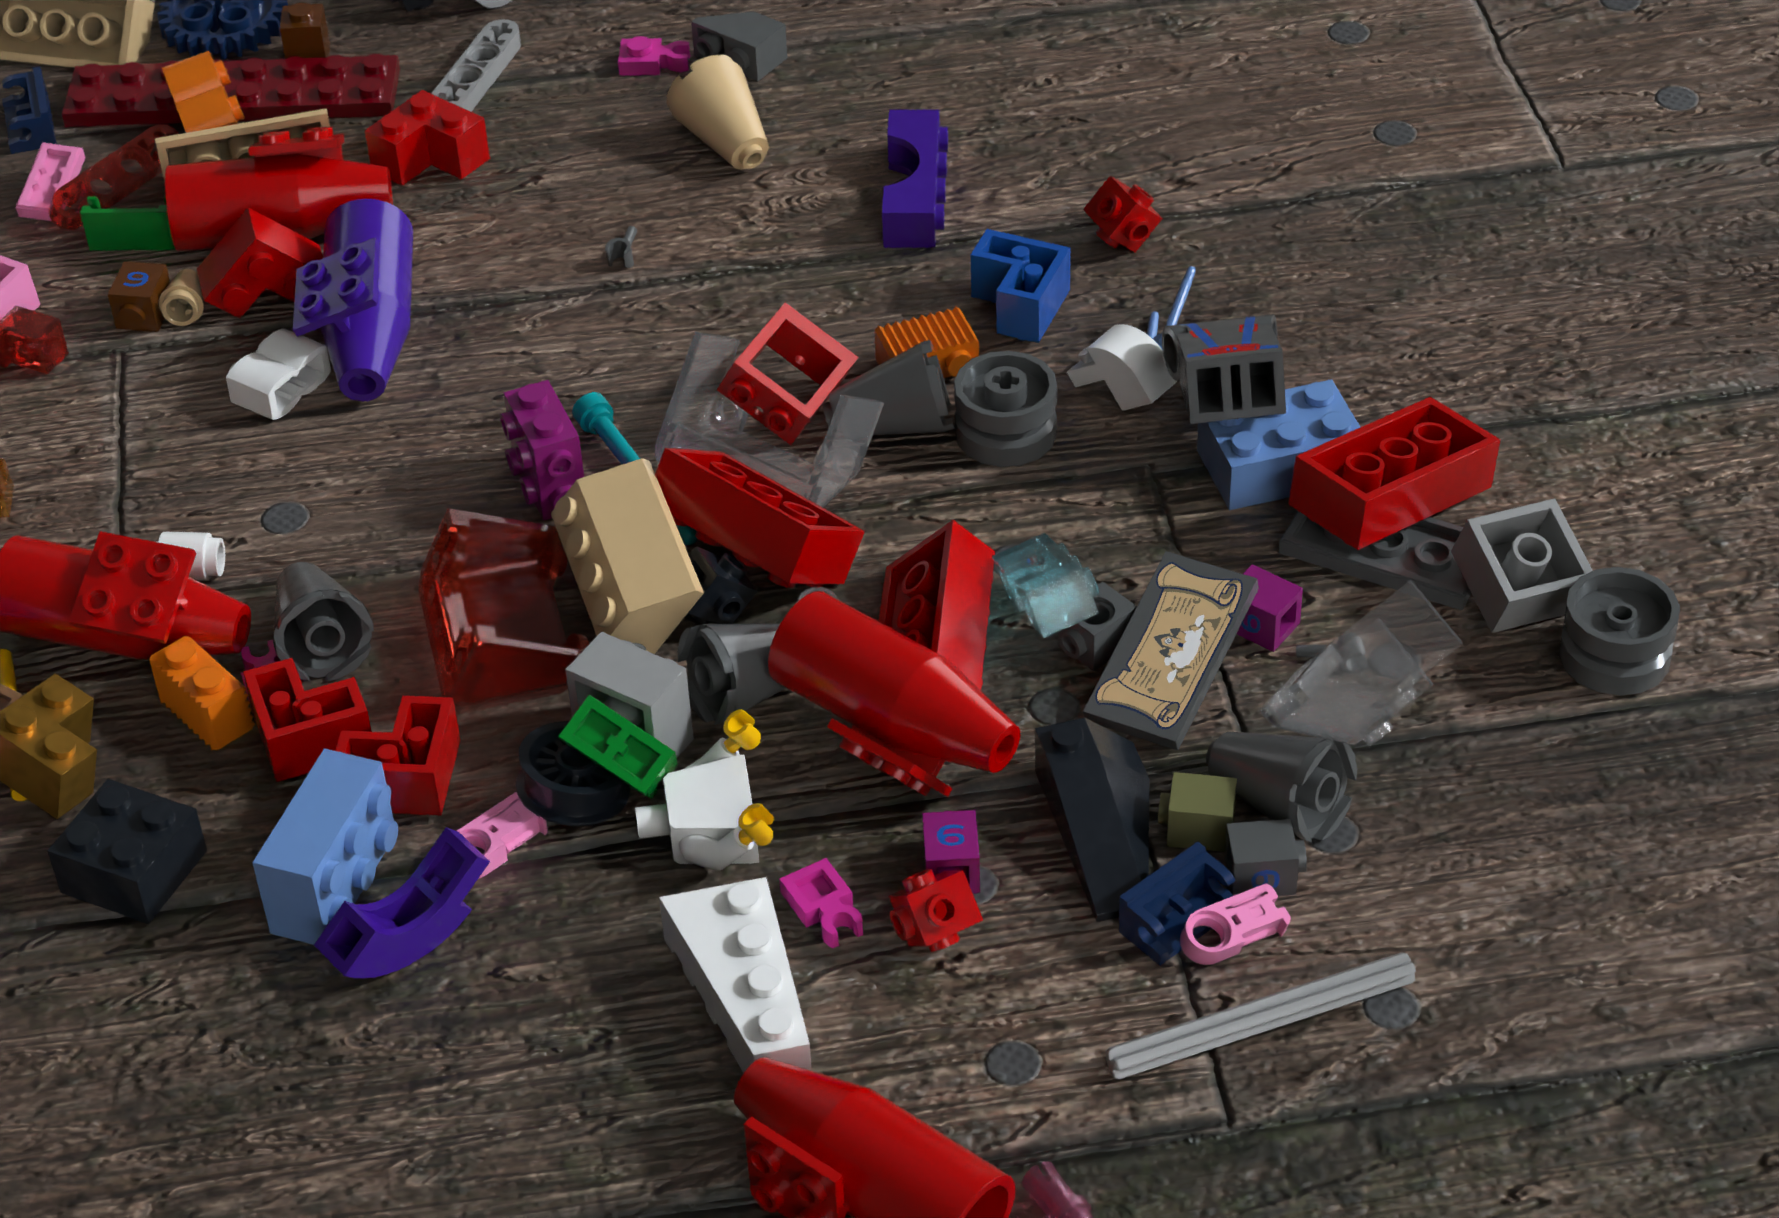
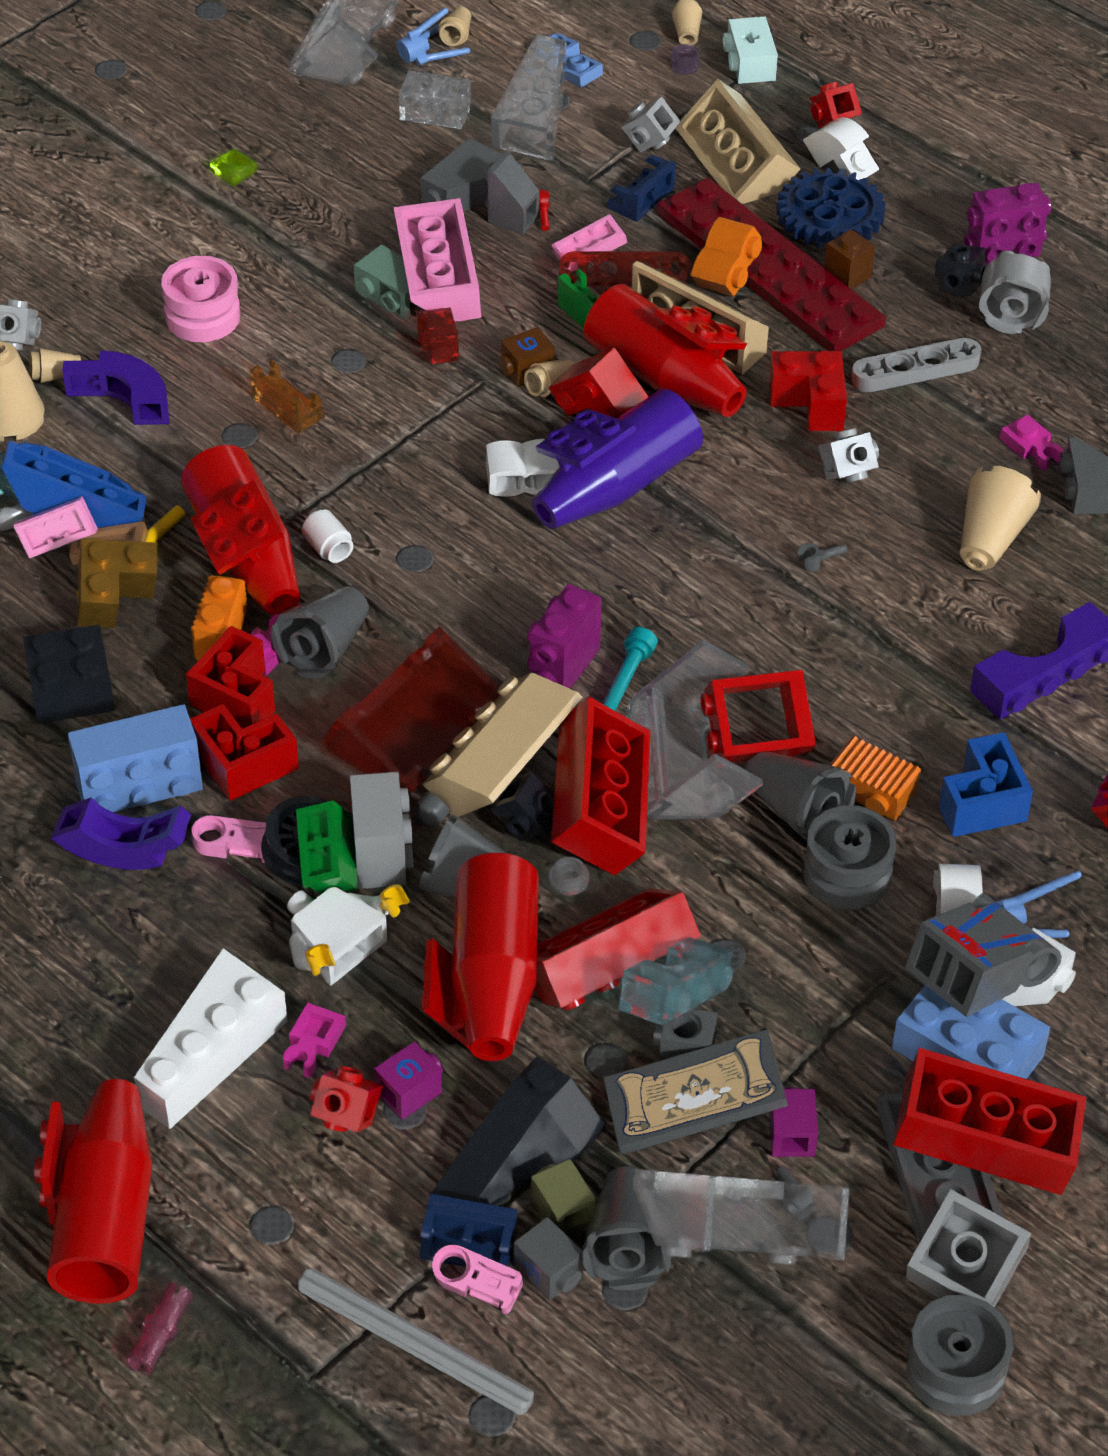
camera: 50 degrees right, 5 degrees up
(540, 160) = (849, 455): none -> brick

